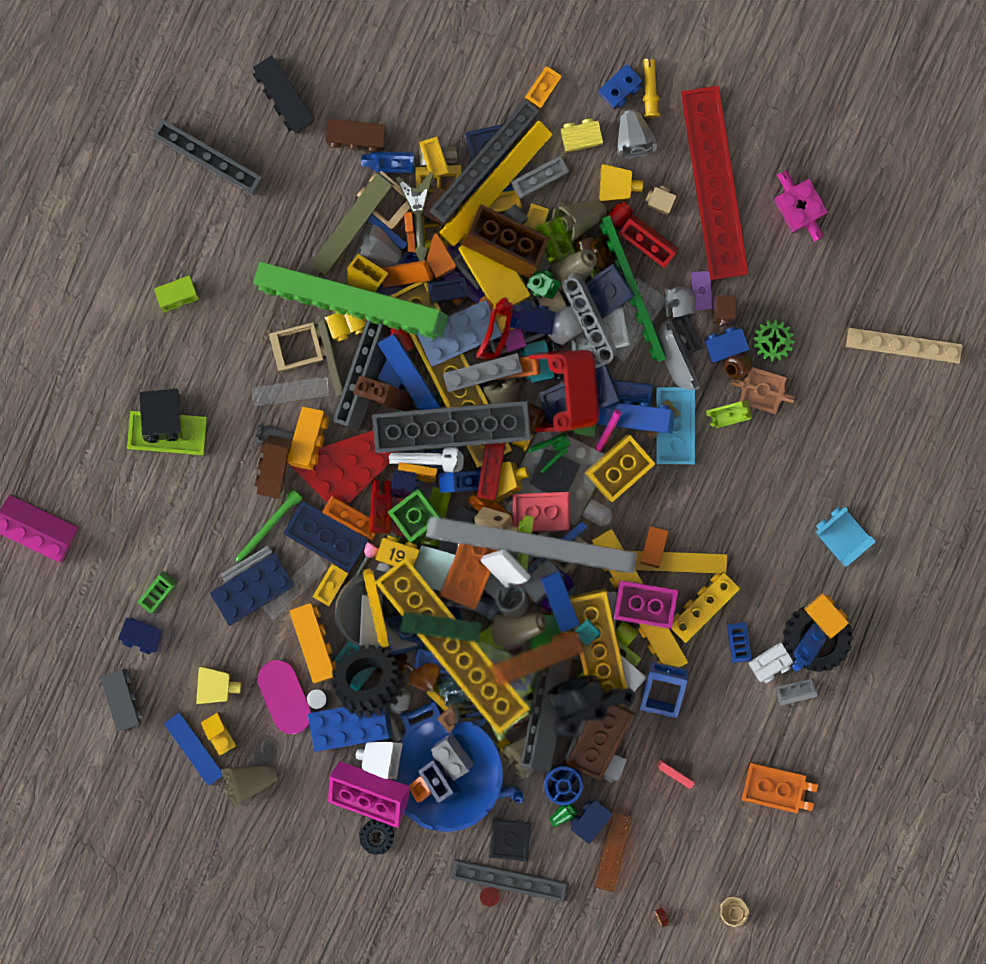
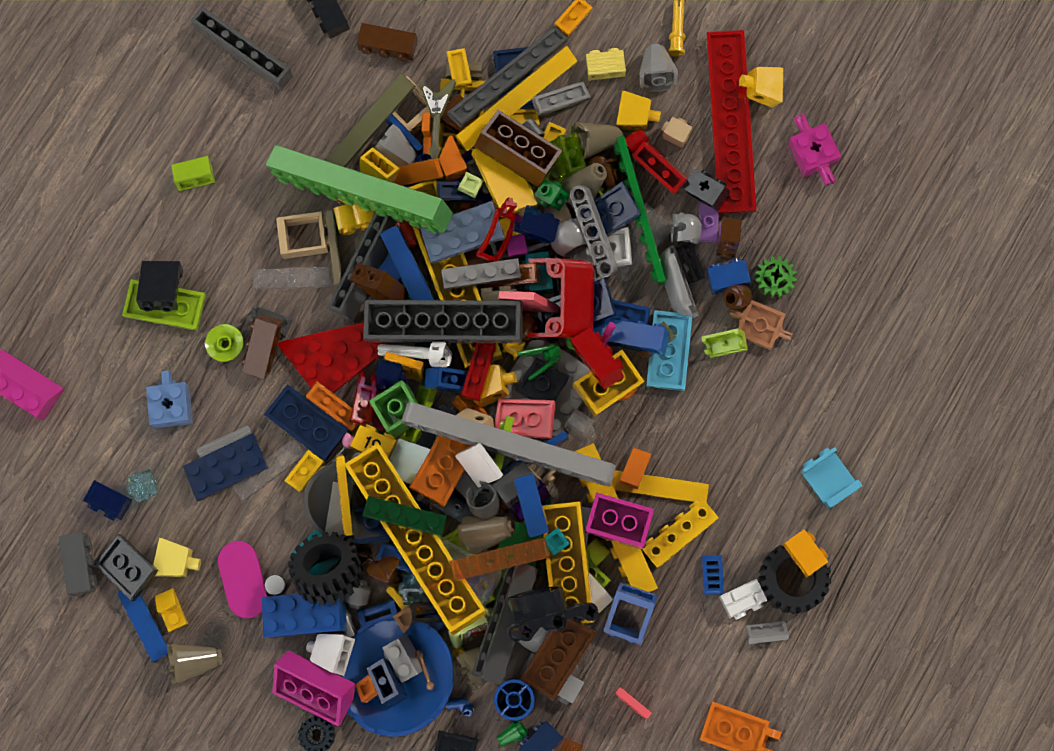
camera: 20 degrees right, 10 degrees down
(168, 581) = (144, 450): bright green slope -> none
(170, 698) = (126, 567): none -> tile
(173, 617) = (142, 485): none -> clear light blue brick
(176, 528) = (164, 393): none -> medium blue hinge
(223, 465) = (219, 335): none -> lime dish
(292, 499) = (278, 382): bright green piece -> none
(308, 438) = (300, 323): light orange brick -> none
(313, 642) = (278, 525): light orange brick -> none
(389, 162) = (417, 70): blue hinge -> none
(461, 282) = (470, 185): none -> yellowish green tile
(480, 780) = (419, 655): none -> medium nougat hinge
(532, 396) = (531, 301): none -> coral tile
(608, 447) = (598, 357): none -> red brick
(620, 87) = (648, 22): blue brick -> none
(706, 264) = (712, 197): none -> black brick
(744, 143) = (764, 85): none -> yellow torso
(809, 647) = (784, 584): blue hinge -> none
(903, 345) = (906, 296): tan plate -> none

